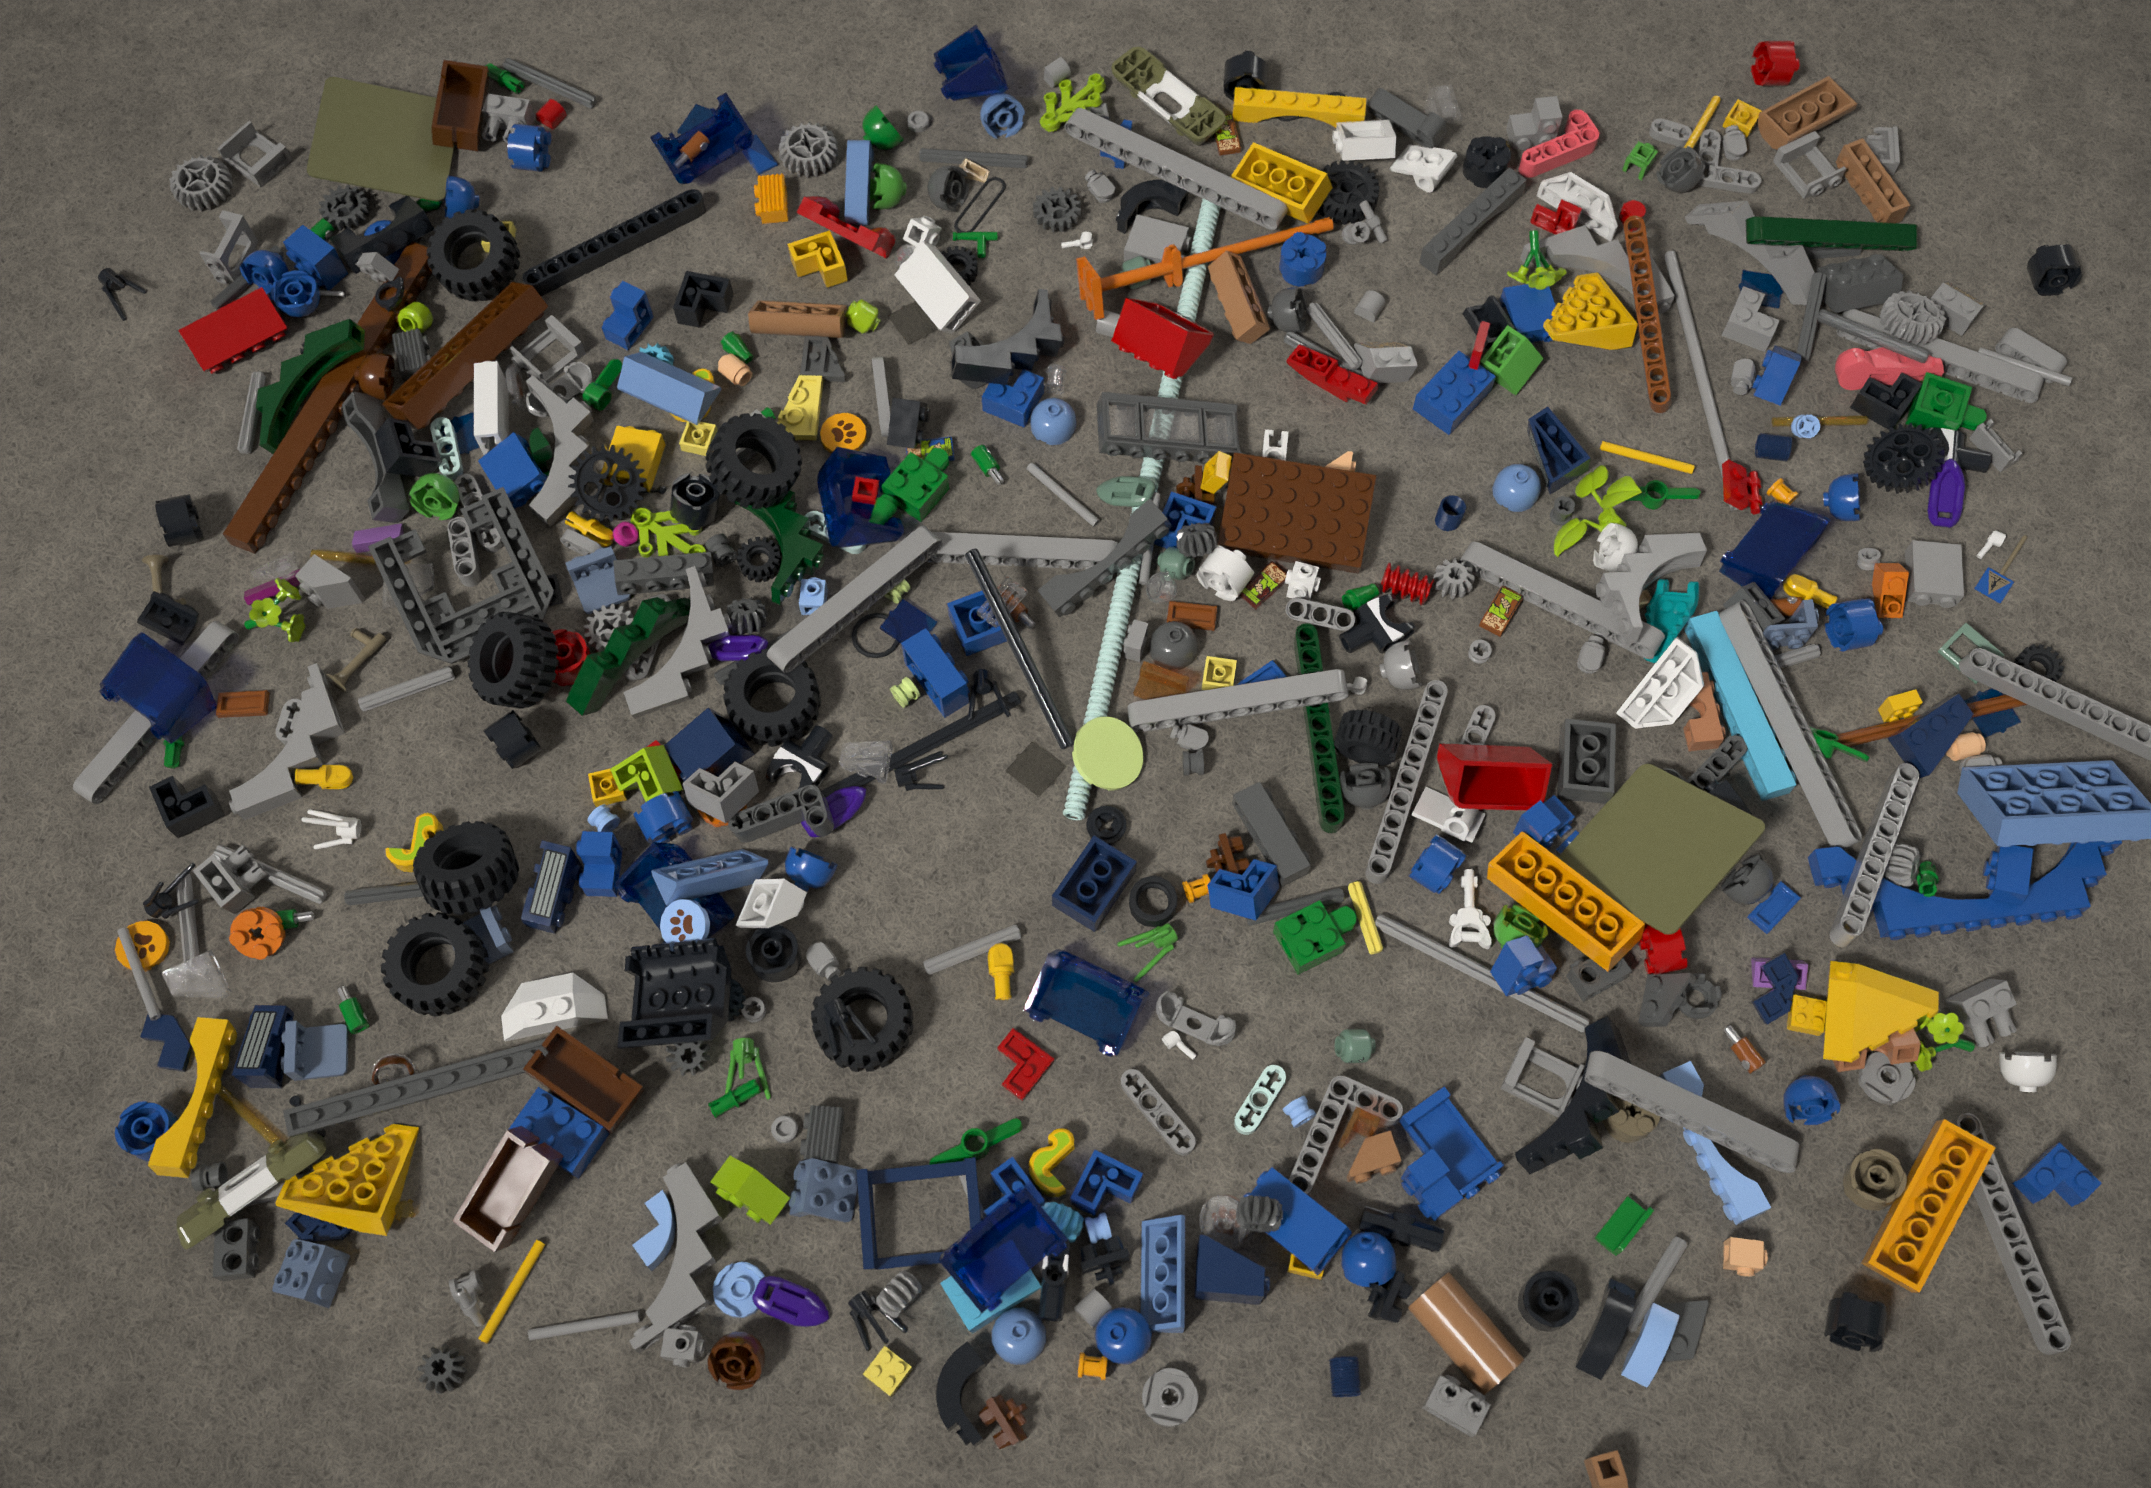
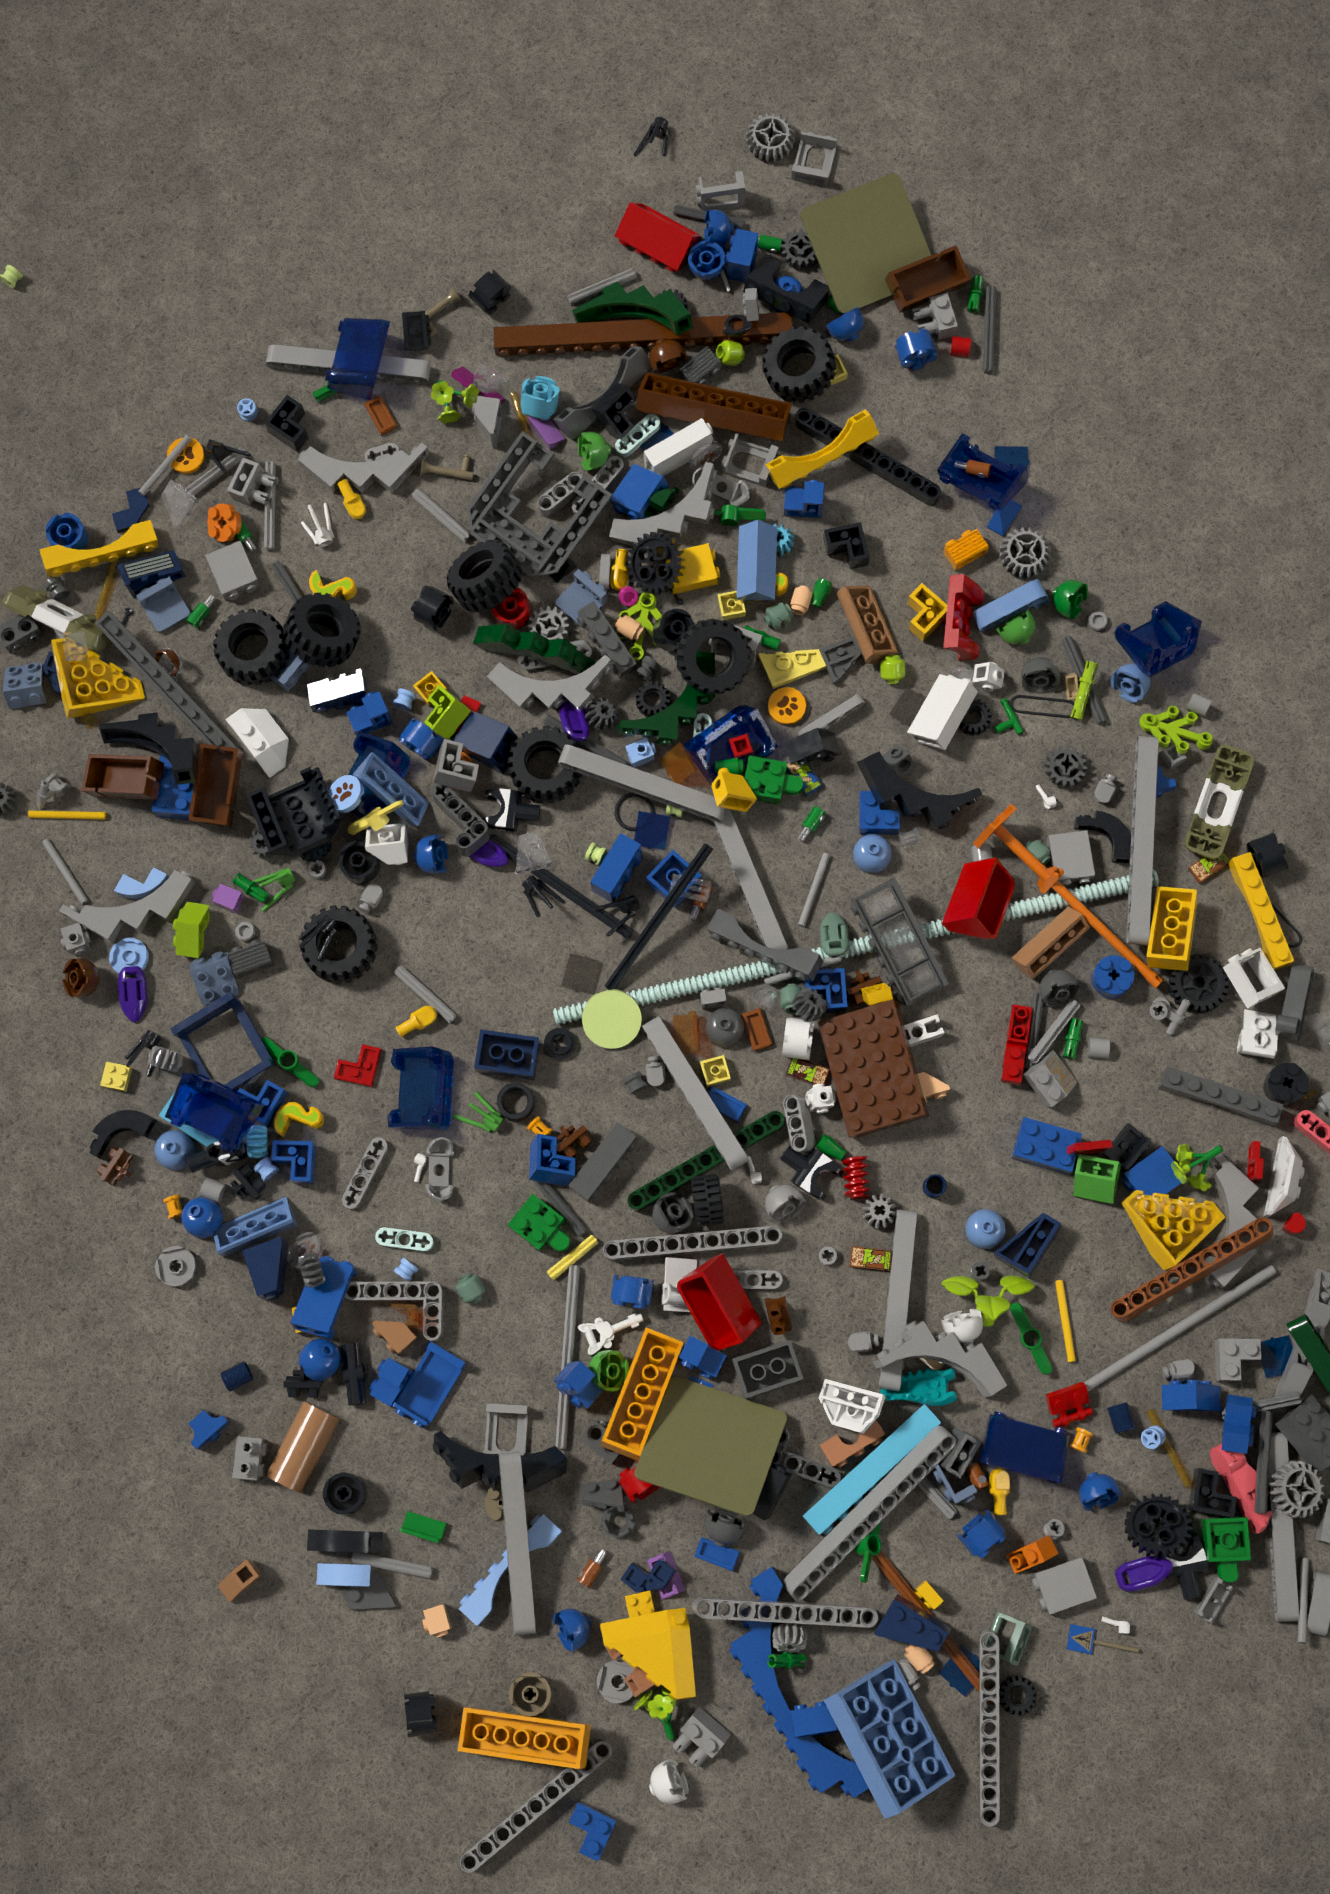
camera: 70 degrees right, 10 degrees up
(128, 846) = (247, 405): none -> light blue wheel
(302, 1174) = (75, 646): none -> clear panel
(324, 949) = (232, 571): none -> light grey brick
(338, 521) = (539, 397): none -> medium azure brick
(491, 1116) = (163, 739): none -> black arch
(585, 229) = (857, 430): none -> yellow arch
(664, 543) = (629, 627): none -> light nougat brick
(732, 1131) = (227, 898): none -> medium lavender brick
(733, 905) = (376, 819): none -> light yellow piece
(738, 398) = (778, 615): none -> sand green head
(848, 560) = (678, 764): none -> clear orange piece
(915, 512) = (732, 791): none -> yellow torso
(978, 150) = (1084, 690): none -> lime pin
(1349, 324) = (1073, 1038): none -> green pin
(1396, 1444) = (207, 1428): none -> blue brick
(1529, 724) = (778, 1315): none -> reddish brown hips
(1824, 343) = (1237, 1429): none -> blue brick

